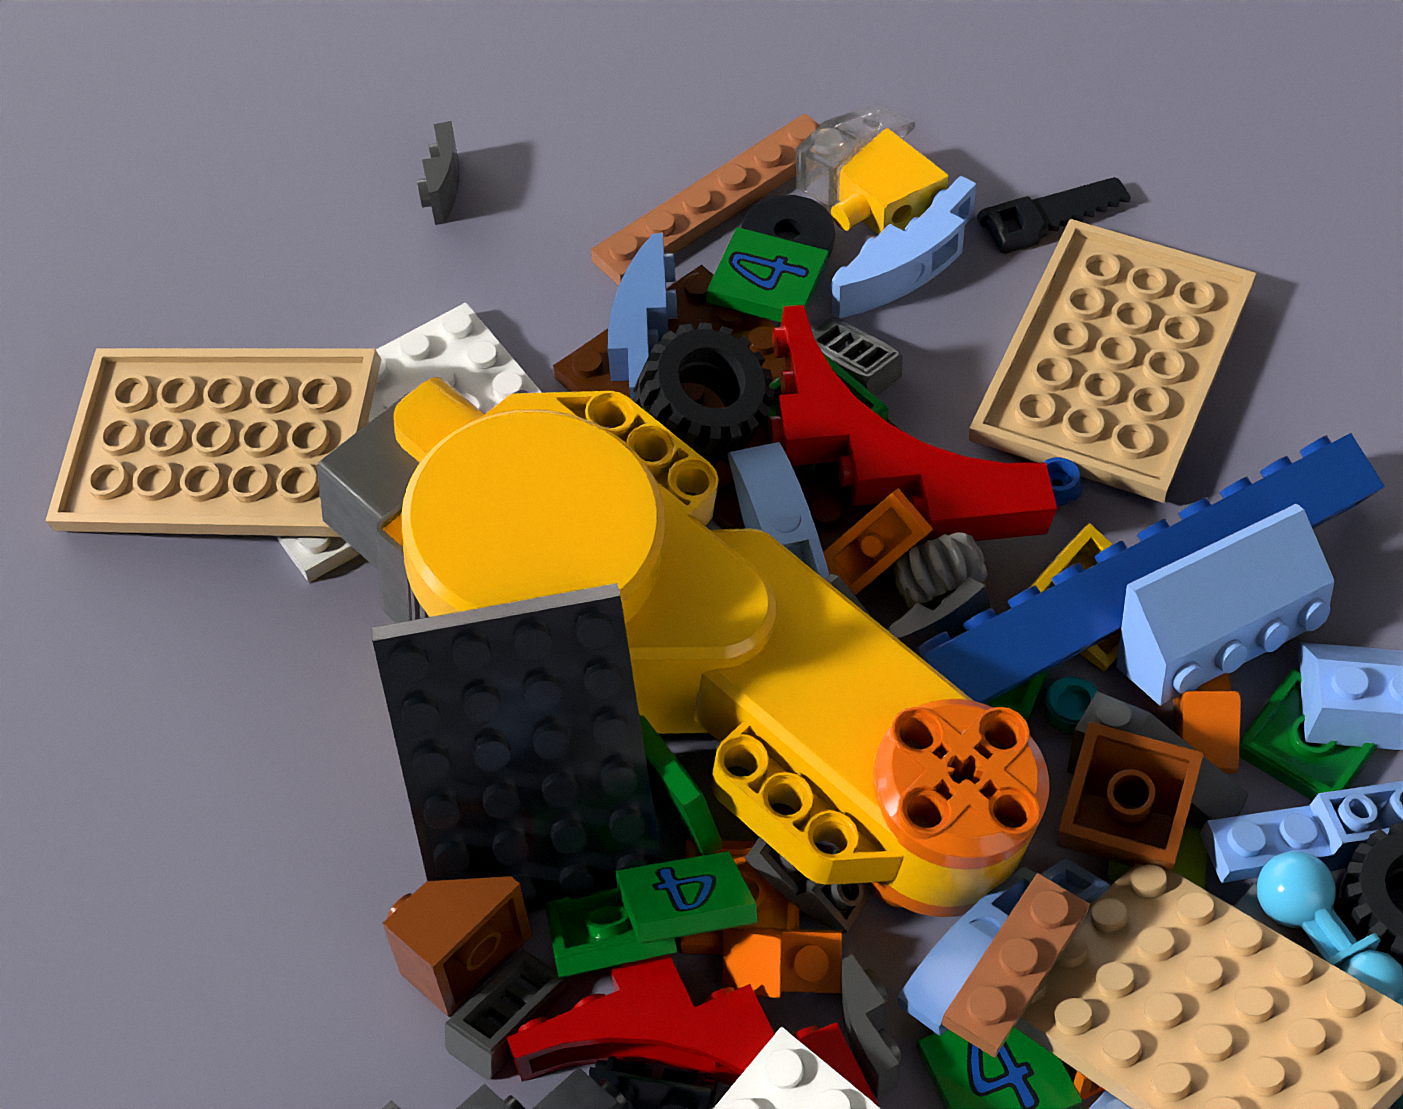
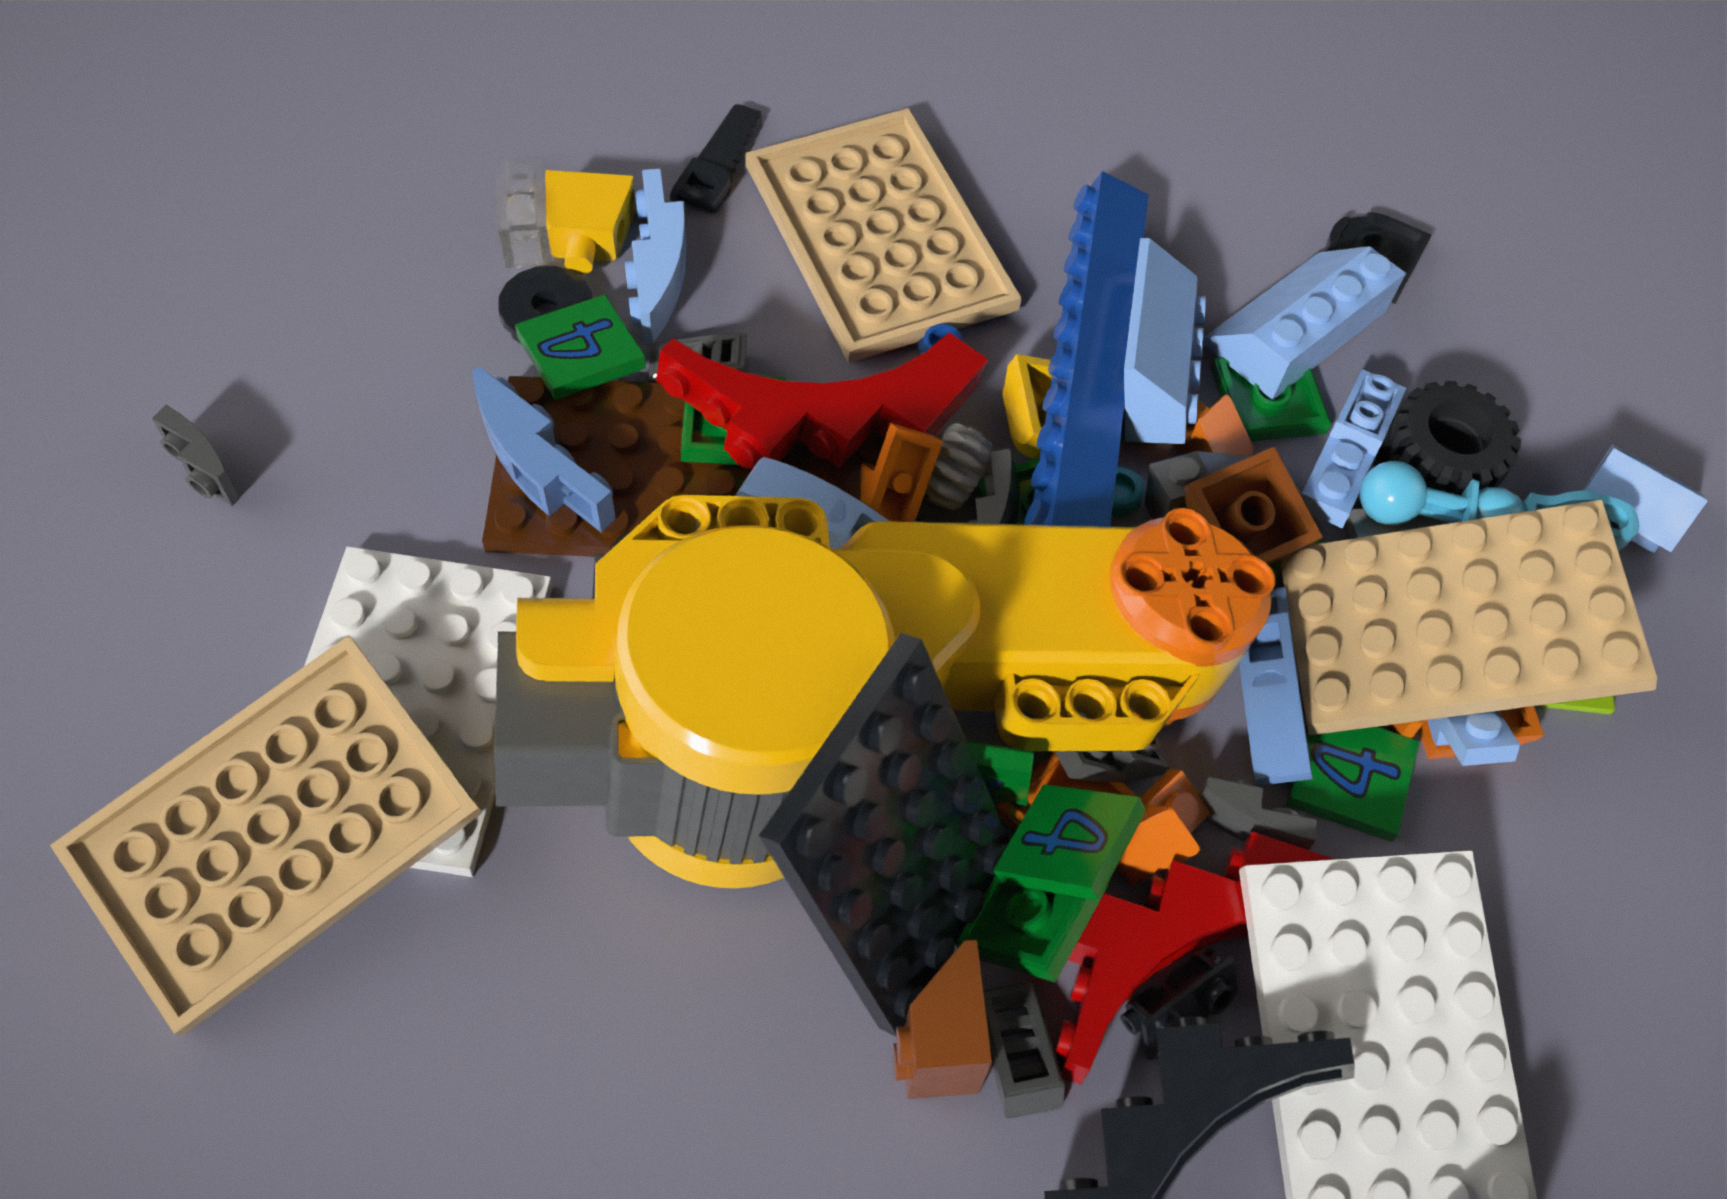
camera: 55 degrees left, 5 degrees up
(709, 200) = (453, 325): nougat plate -> none
(722, 366) = (667, 433): black tyre -> none
(1015, 965) = (1324, 686): nougat plate -> none

